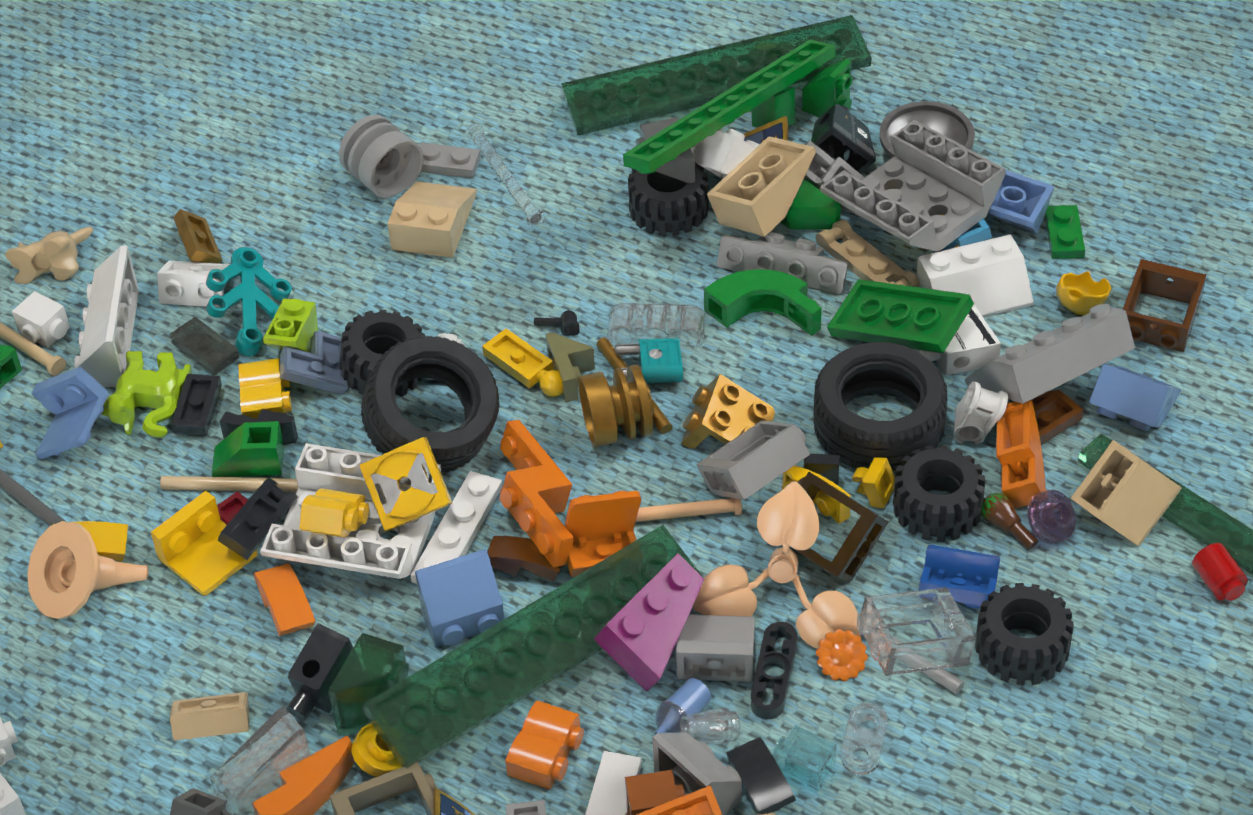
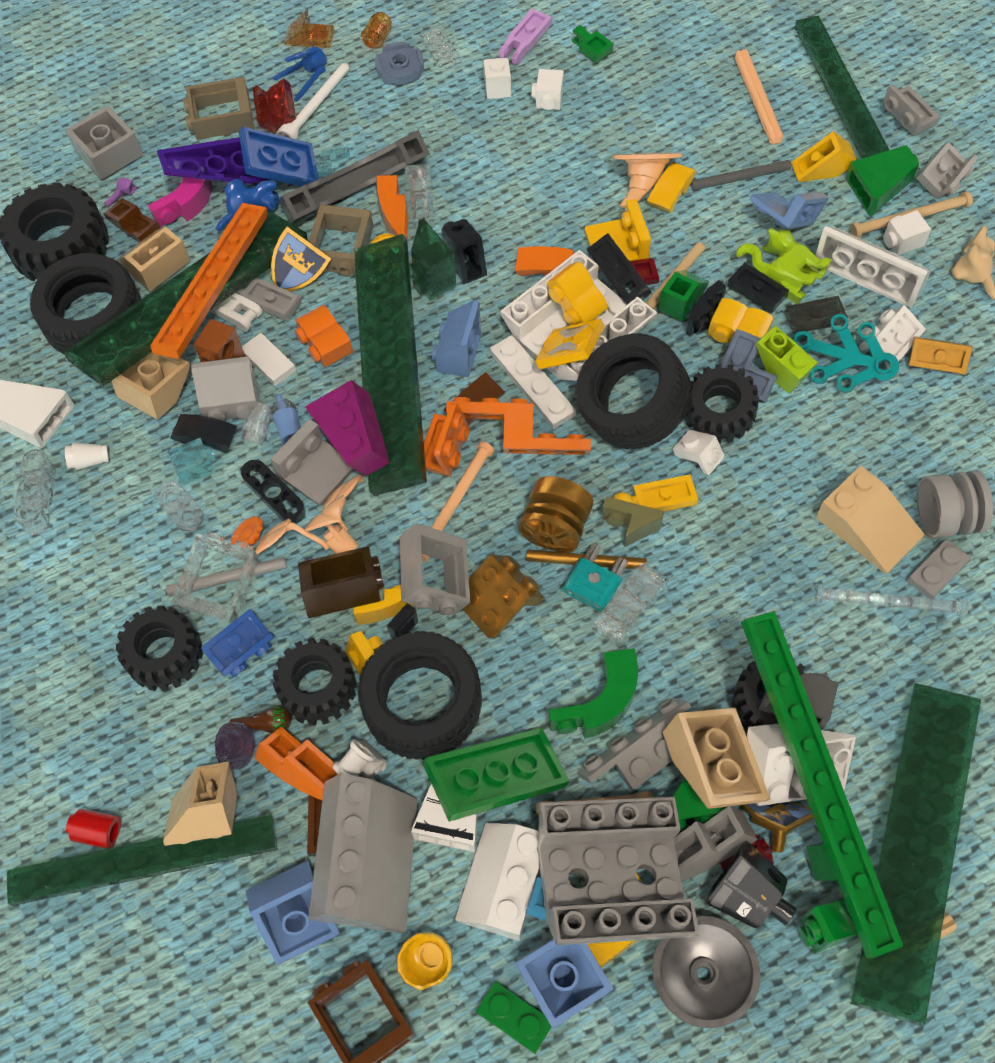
camera: 125 degrees right, 15 degrees up
(209, 716) = (491, 197): tan slope -> none
(567, 322) = (680, 551): black hand -> none

